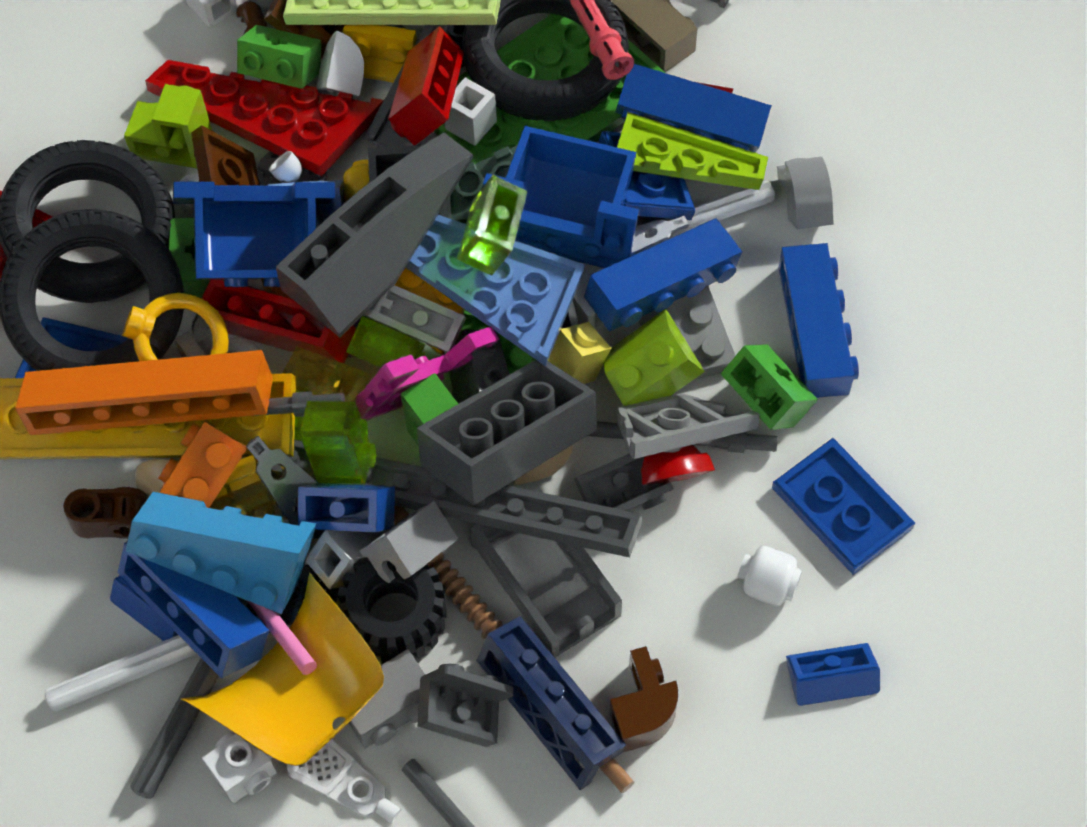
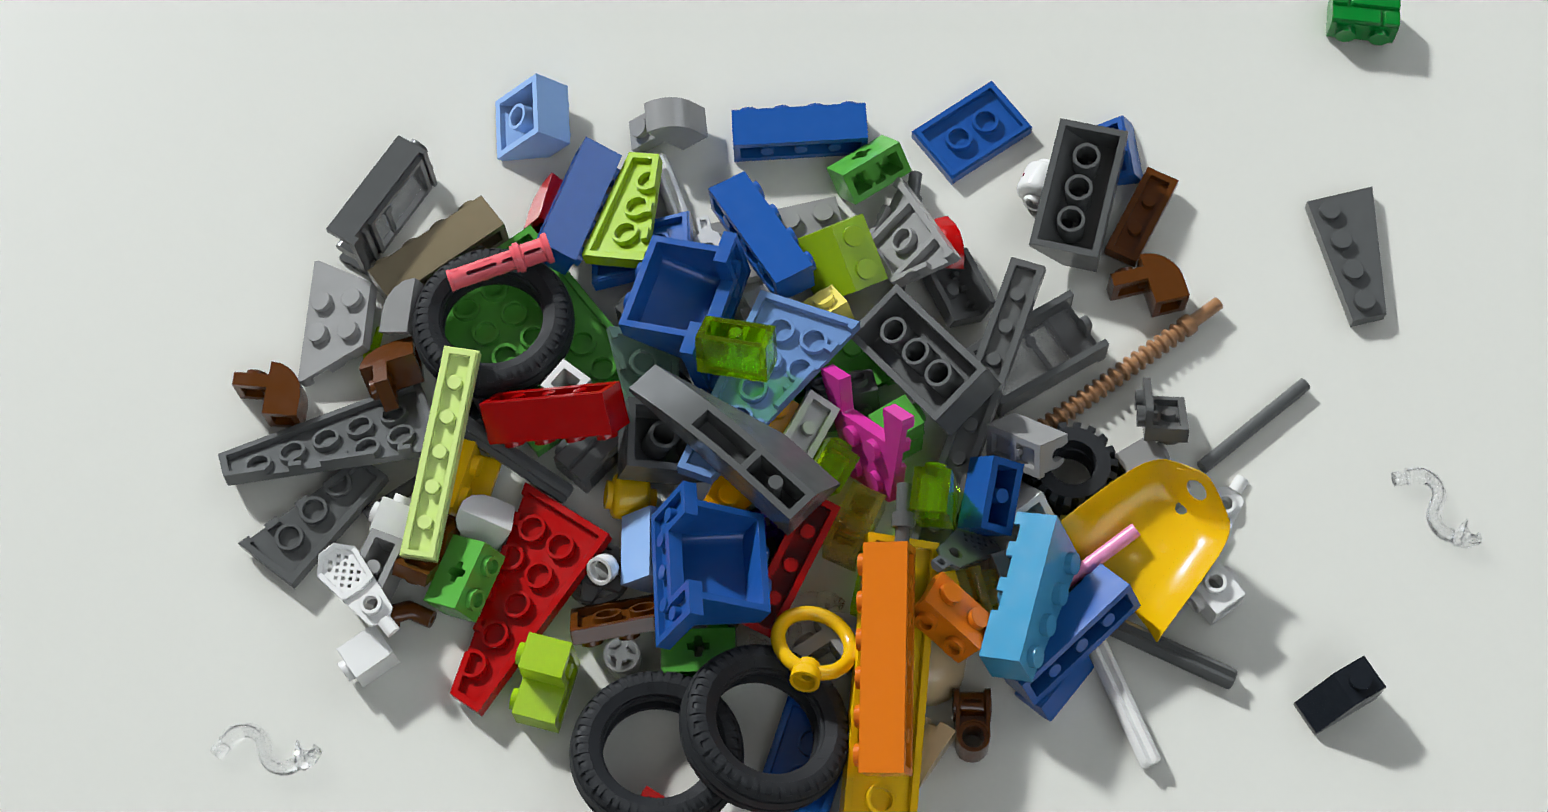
camera: 85 degrees left, 5 degrees up
(84, 473) = (935, 744): none -> tan brick
(550, 699) = (1151, 349): dark blue fence -> none
(741, 695) = (1141, 217): none -> reddish brown plate
(752, 610) = (1079, 193): none -> dark grey slope
(801, 75) = (532, 120): none -> light blue slope

